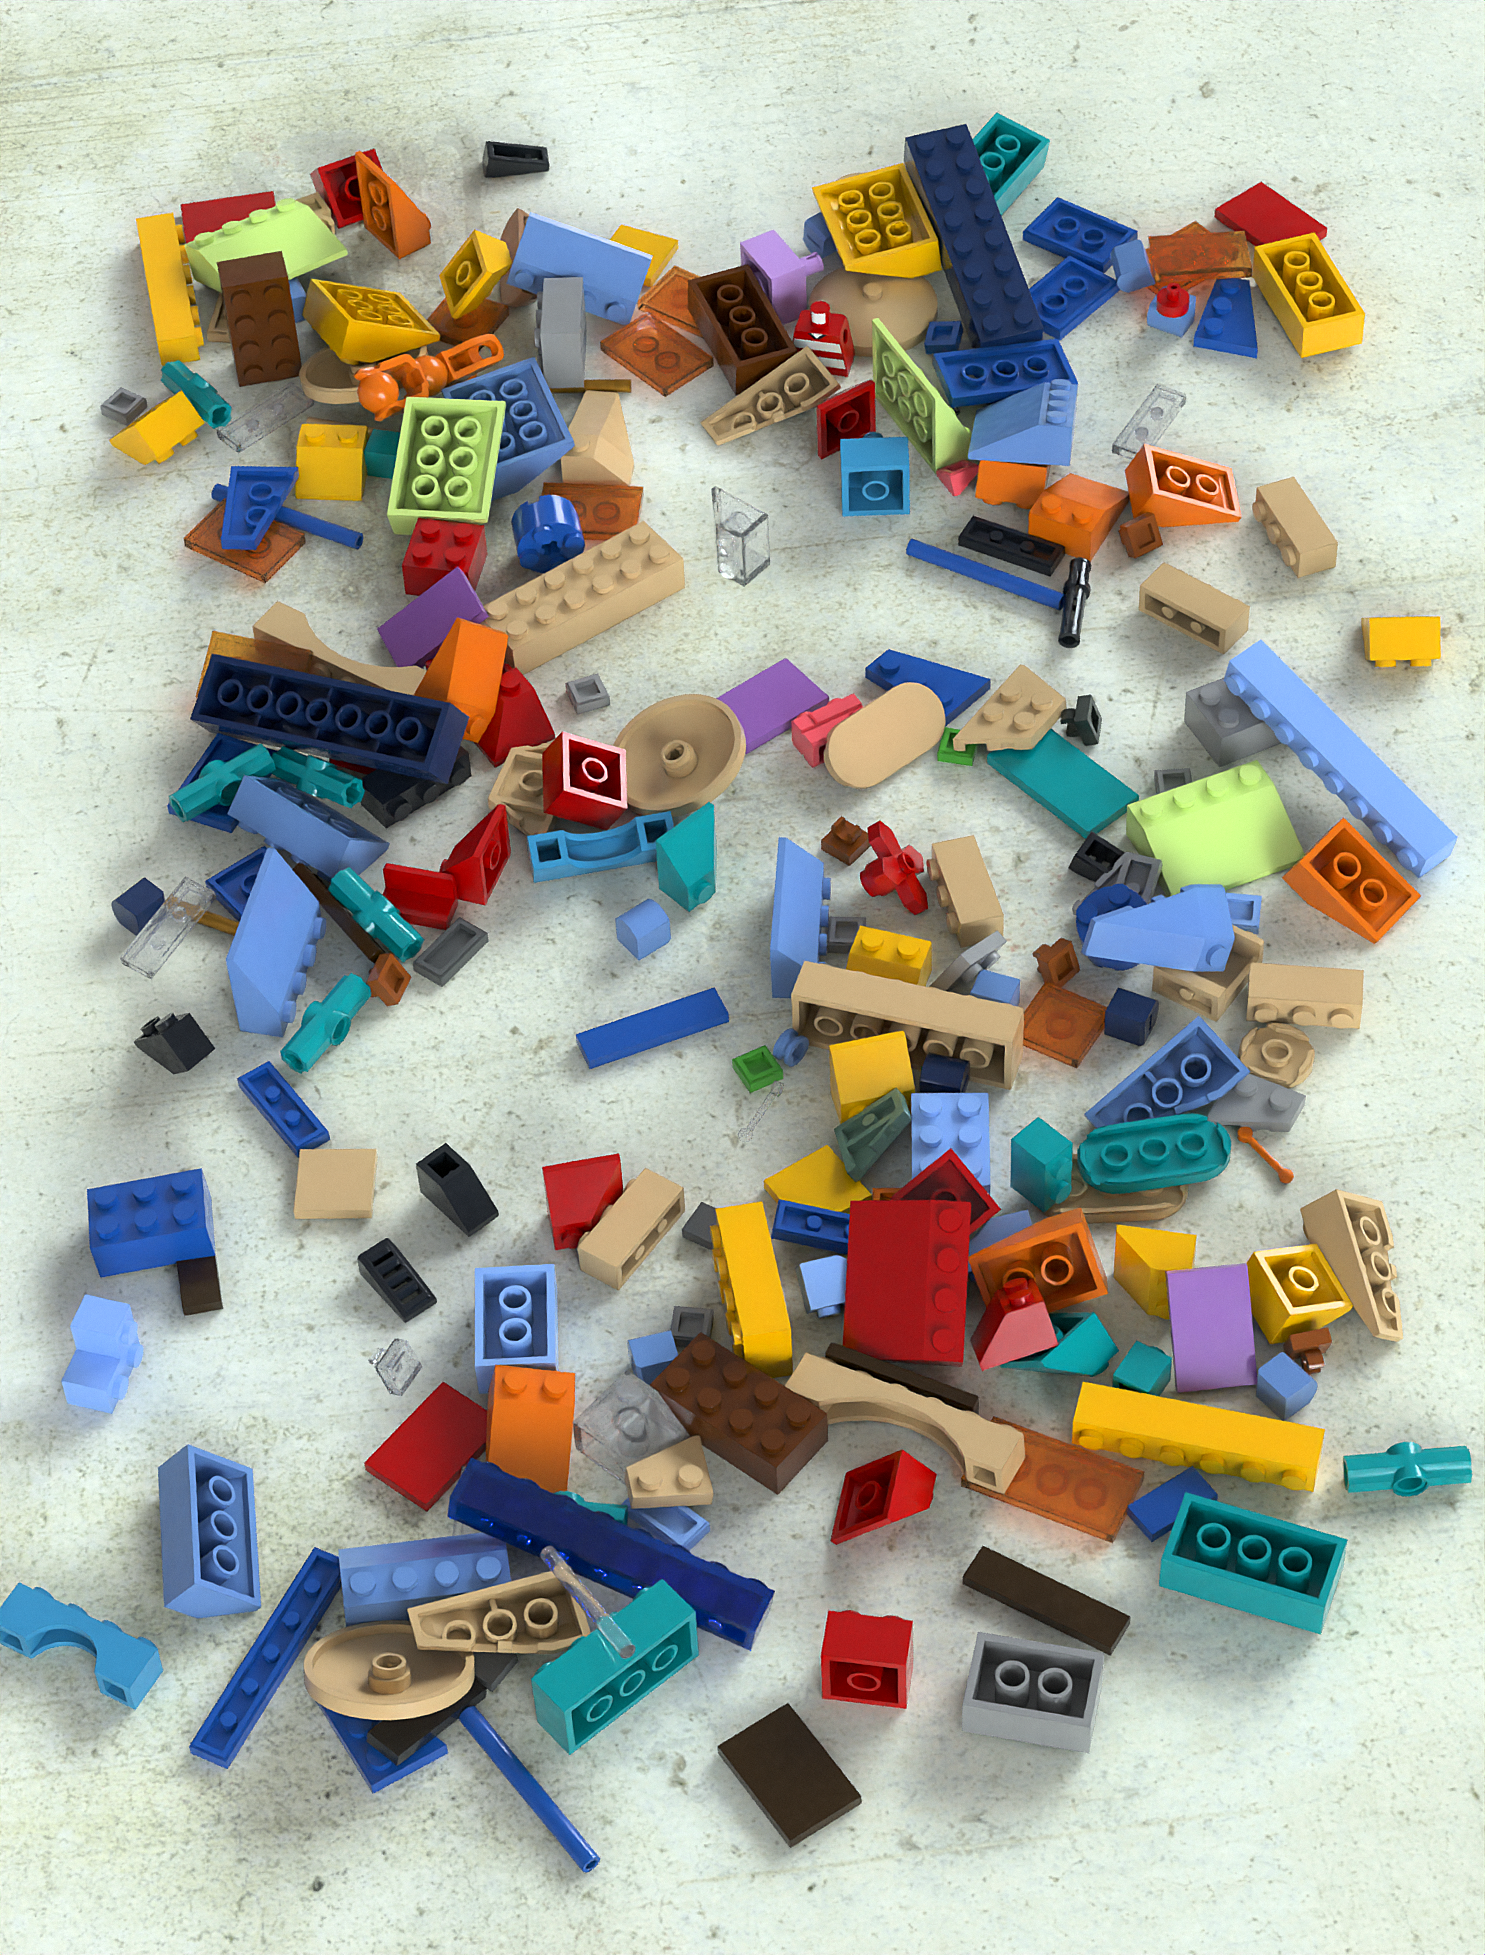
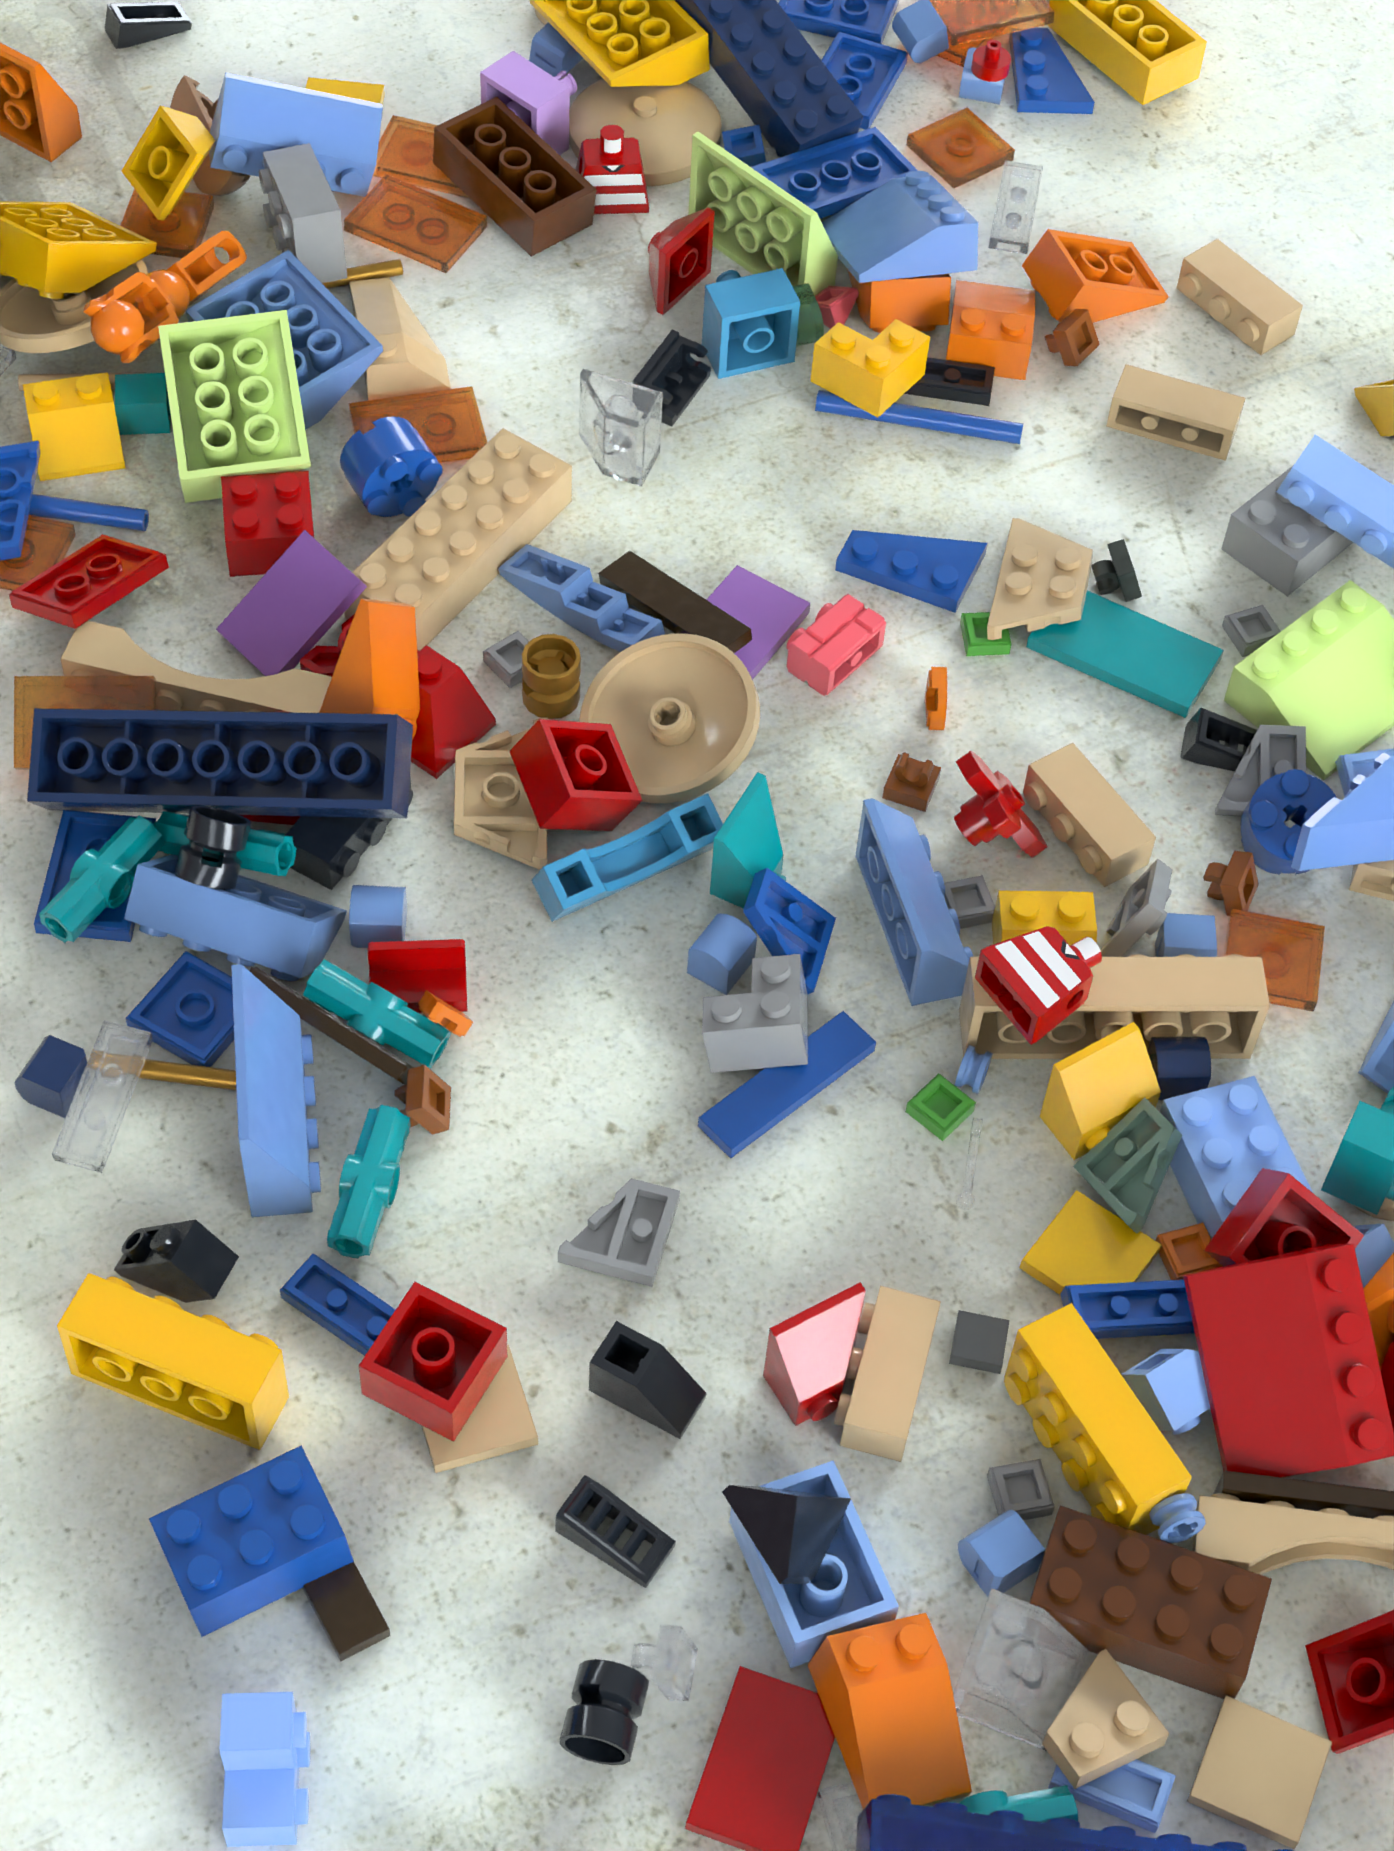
camera: 25 degrees left, 5 degrees up
(144, 1100) = (174, 1359): none -> yellow brick
(296, 575) = (88, 581): none -> red tile
(306, 763) = (215, 831): none -> black wheel
(313, 1139) = (433, 1361): none -> red brick
(333, 1386) = (602, 1721): none -> black wheel
(407, 847) = (377, 914): none -> medium blue piece
(421, 923) = (444, 1014): none -> orange tile
(450, 952) = (488, 1042): dark grey tile -> none
(480, 857) = (477, 907): red slope -> none
(490, 1098) = (626, 1235): none -> light grey wing
(497, 1292) = (788, 1527): none -> black slope
(603, 708) = (551, 676): none -> pearl gold wheel
(647, 980) = (760, 1026): none -> light grey brick
(651, 658) = (574, 598): none -> medium blue slope
(698, 920) = (789, 922): none -> blue wing
(721, 676) = (672, 602): none -> dark brown tile
(771, 1537) = (1259, 1772): none -> tan tile
(778, 1359) = (1177, 1518): none -> medium blue bush
(782, 393) = (593, 245): tan wedge -> none
(799, 508) = (675, 374): none -> black hinge
(841, 982) = (1038, 978): none -> red torso
(884, 735) = (904, 638): tan tile -> none
(895, 784) = (936, 698): none -> orange tile
(925, 477) = (810, 316): none -> clear green piece
(956, 530) = (869, 370): none -> yellow brick
(1078, 575) = (1035, 424): black pin -> none
(1127, 367) = (960, 147): none -> clear orange tile
(1130, 1017) = (1352, 931): dark blue piece -> none

